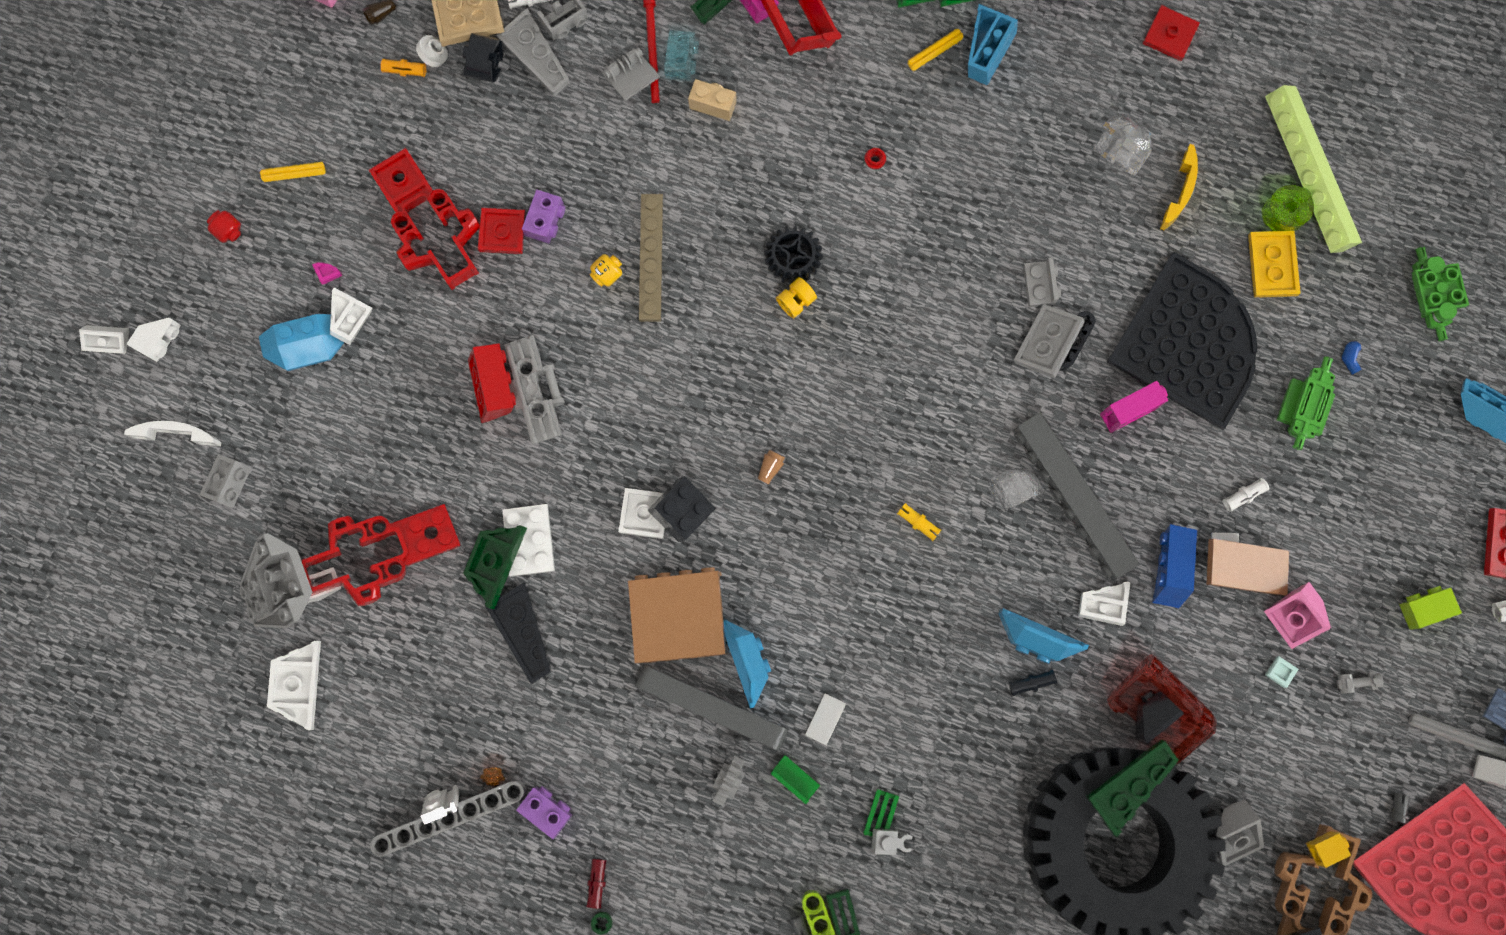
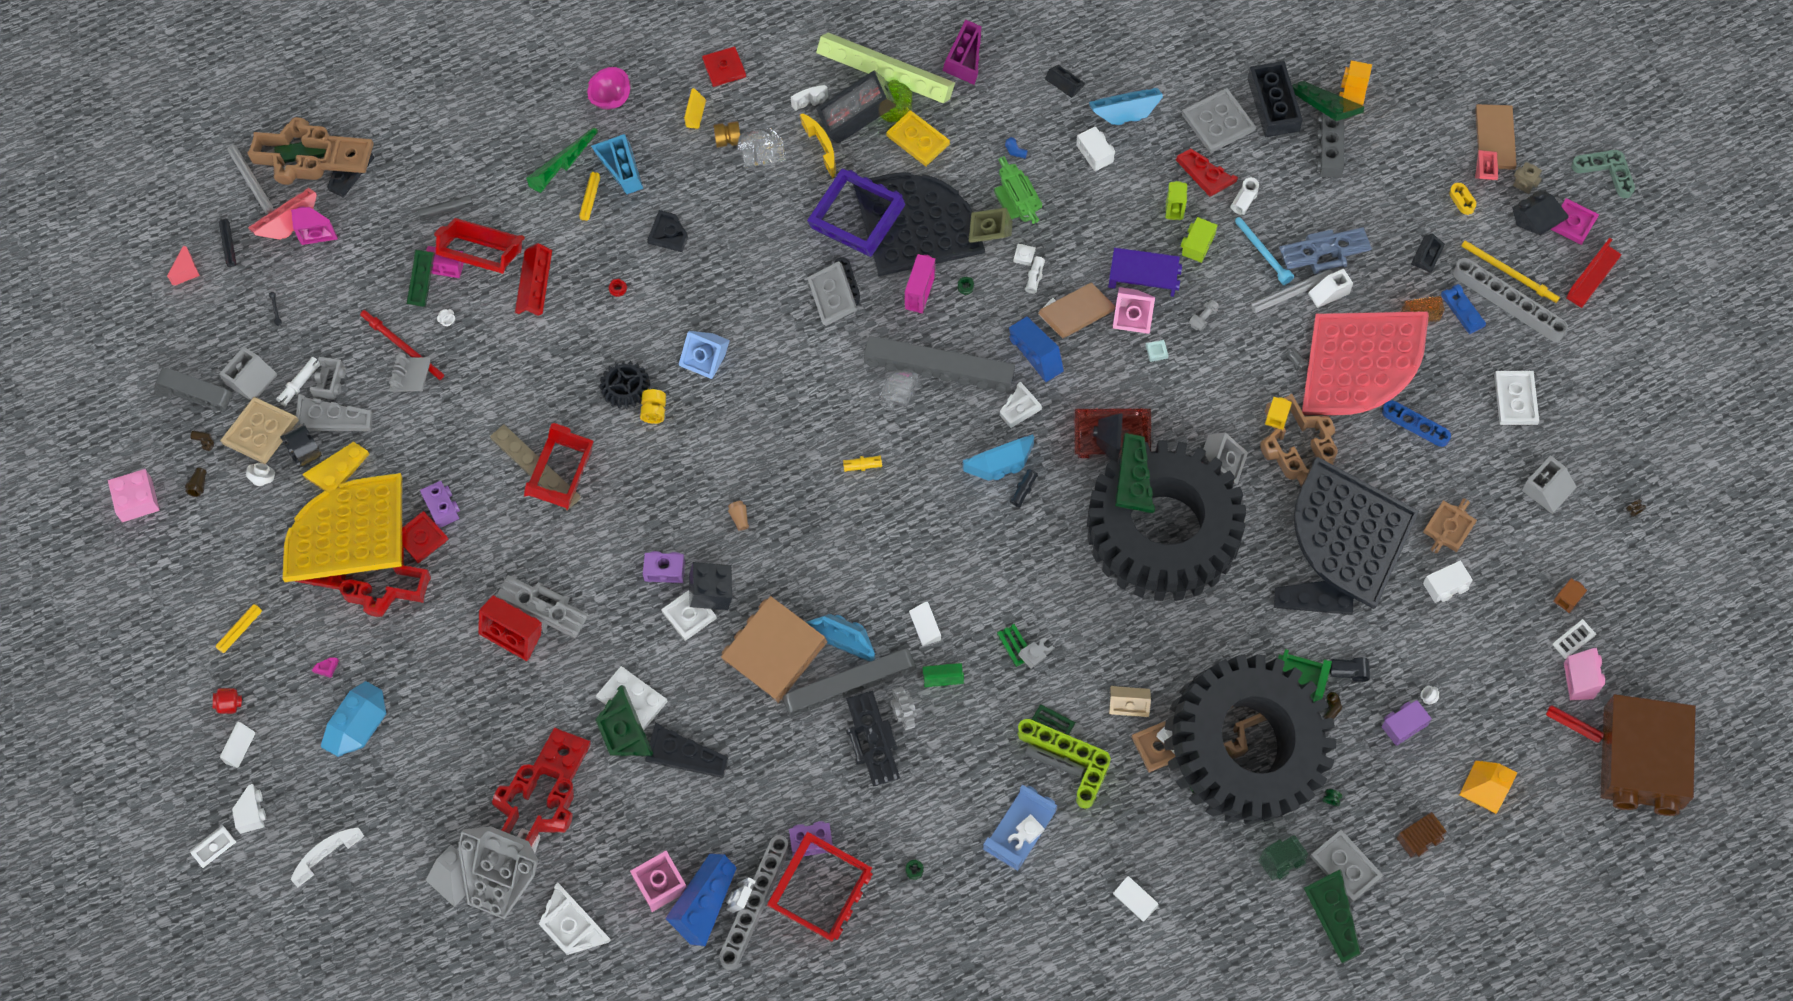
camera: 45 degrees left, 15 degrees down
(198, 272) = (237, 745): none -> white slope
(225, 481) = (391, 850): light grey bracket -> none
(241, 546) = (447, 876): none -> light grey slope
(347, 316) = (369, 676): white wing -> none
(392, 723) = (659, 881): none -> bright pink brick
(403, 67) = (238, 509): light orange pin -> none
(408, 775) = (702, 899): none -> blue wedge
(446, 170) = (347, 530): none -> yellow plate
(492, 776) = (756, 852): clear orange plate -> none
(497, 104) = (337, 467): none -> yellow wing
(509, 903) = (854, 896): none -> red window
(596, 883) = (886, 850): dark red pin -> none
(606, 270) = (513, 498): yellow head -> none
(667, 464) = (673, 573): none -> medium lavender brick
(680, 55) = (430, 335): clear light blue brick -> none
(685, 781) = (878, 737): none -> black piece
(696, 253) = (563, 436): none -> red piece
(709, 50) = (446, 317): none -> white plate
(712, 99) = (479, 342): tan brick -> none
(813, 84) = (533, 279): none -> red panel
(886, 289) = (703, 353): none -> light blue slope
(967, 146) = (668, 232): none -> black plate
(1041, 283) = (793, 267): light grey bracket -> none
(1104, 51) = (694, 109): none -> yellow slope
(1108, 101) = (727, 134): none -> pearl gold wheel
(1154, 322) = (865, 247): none -> dark purple window
(1180, 448) = (965, 291): none -> dark green bush
(1223, 136) = (814, 95): none -> white slope
(1247, 184) = (856, 107): none -> brick
(1252, 412) = (990, 225): none -> olive slope
(1256, 465) = (1024, 254): none -> white plate
(1349, 588) = (1145, 269): none -> dark purple panel
(1398, 224) = (964, 54): none -> magenta wedge
(1425, 428) = (1095, 148): none -> white brick
(1438, 291) = (1025, 71): bright green piece -> none
(1448, 551) = (1176, 200): none -> lime brick
(1466, 333) = (1064, 80): none -> black slope
(1474, 716) = (1284, 276): none -> medium azure piece

